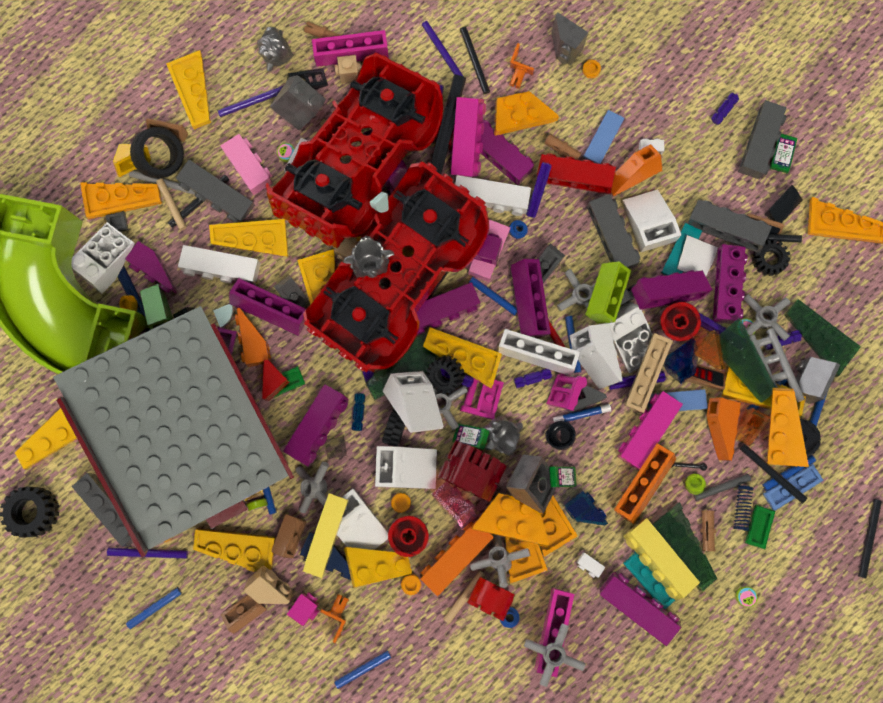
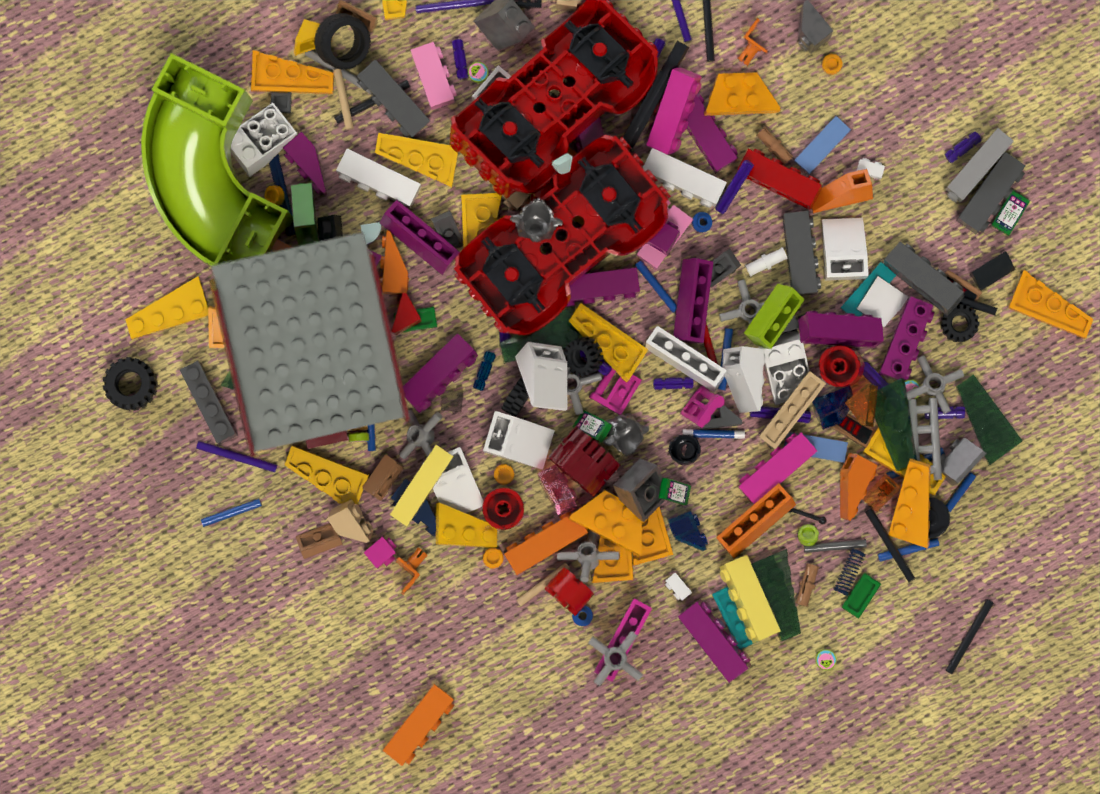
camera: 15 degrees right, 5 degrees up
(267, 145) = (460, 60): none -> dark purple axle
(362, 669) = (423, 627): blue bar -> none
(585, 248) = (766, 261): none -> white pin
(746, 117) = (978, 166): none -> light grey slope
(801, 480) = (916, 561): medium blue tile -> none

